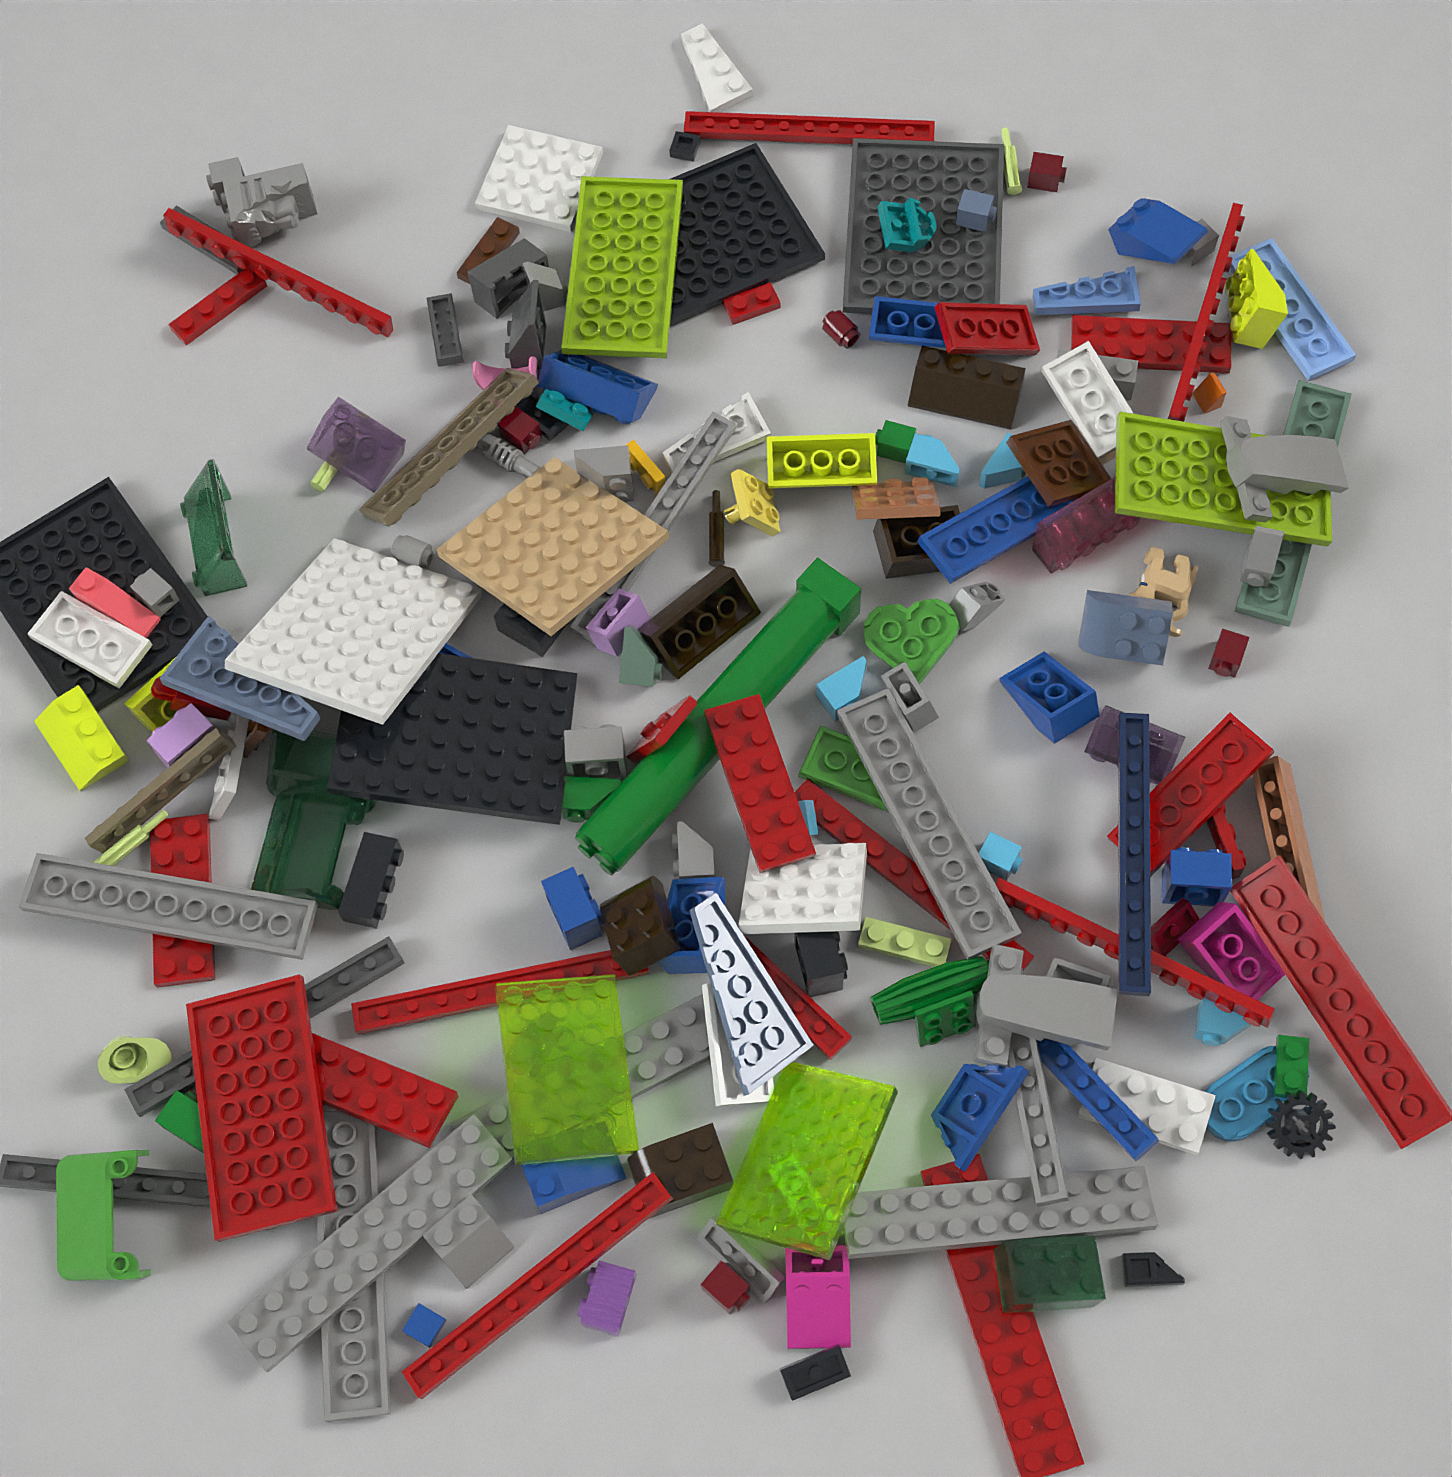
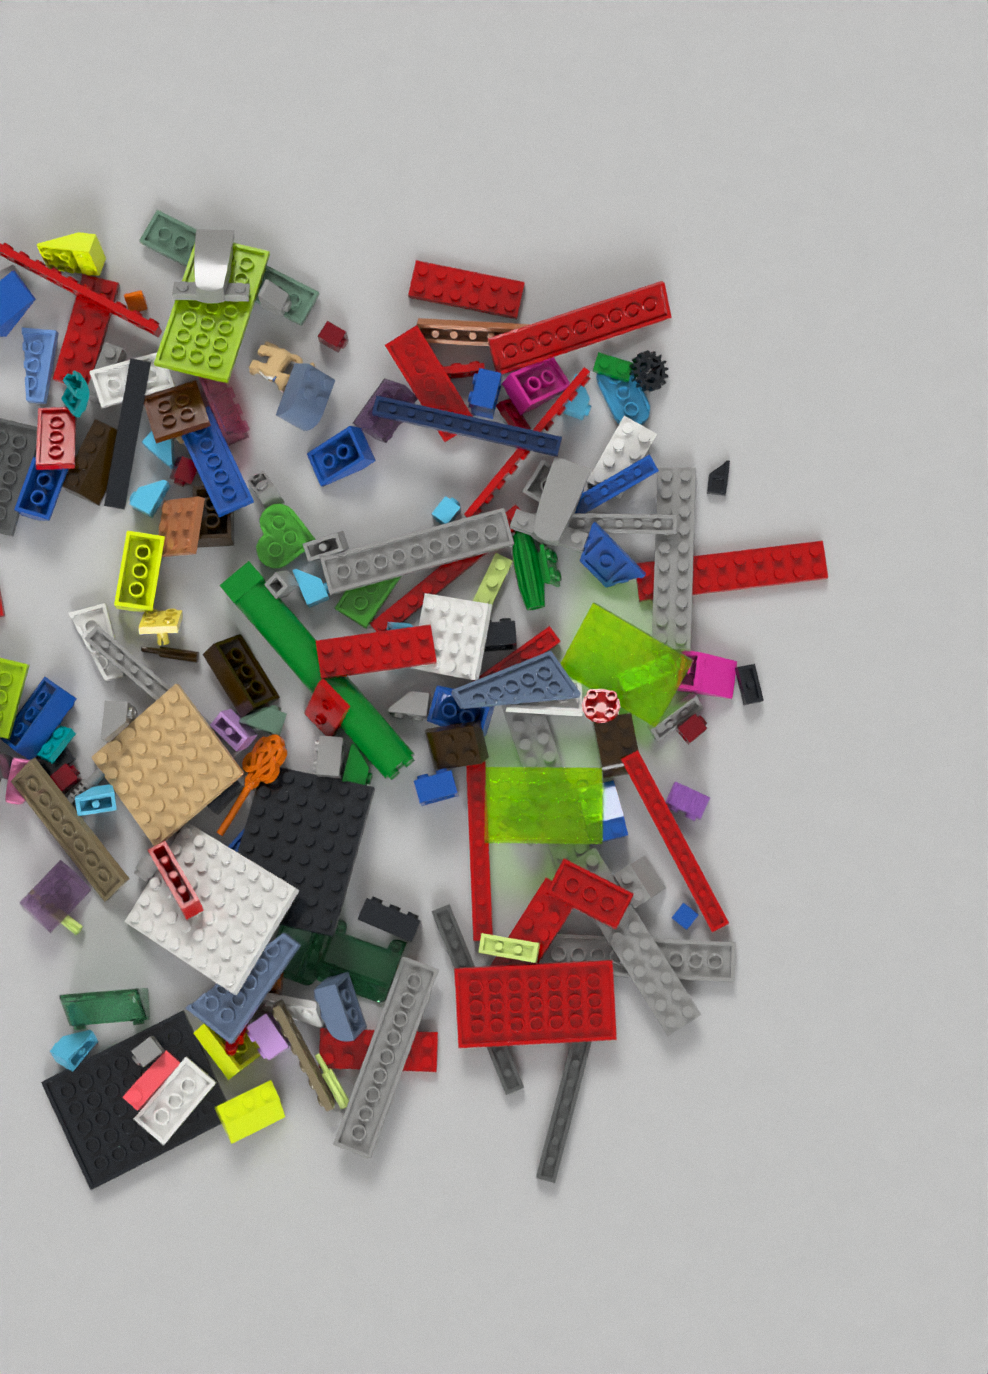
camera: 80 degrees left, 15 degrees up
(87, 1216) = (586, 1120): bright green windscreen -> none
(132, 1059) = (487, 1089): yellowish green piece -> none
(154, 506) = (73, 1048): none -> medium azure slope
(182, 1119) = (533, 1055): green slope -> none
(232, 828) = (340, 1007): none -> sand blue brick
(341, 1052) = (509, 948): none -> yellowish green plate
(387, 575) = (175, 880): none -> brick
(434, 1158) = (589, 893): none -> red plate
(492, 468) = (96, 800): none -> medium azure slope
(570, 667) = (261, 765): none -> orange piece
(649, 472) = (121, 691): yellow plate -> none
(736, 1130) = (600, 705): none -> dish
(837, 642) = (281, 584): none -> light grey brick
(841, 329) = (29, 539): dark red brick -> none
(894, 441) = (129, 518): green brick -> none
(975, 491) = (183, 471): none -> dark red brick
(1016, 411) = (127, 433): none -> black sticker
(1049, 1273) = (715, 536): clear green brick -> none
(1055, 339) = (76, 393): none -> teal slope
(1307, 329) = (108, 222): light blue plate -> none
(1356, 830) = (466, 289): none -> red plate

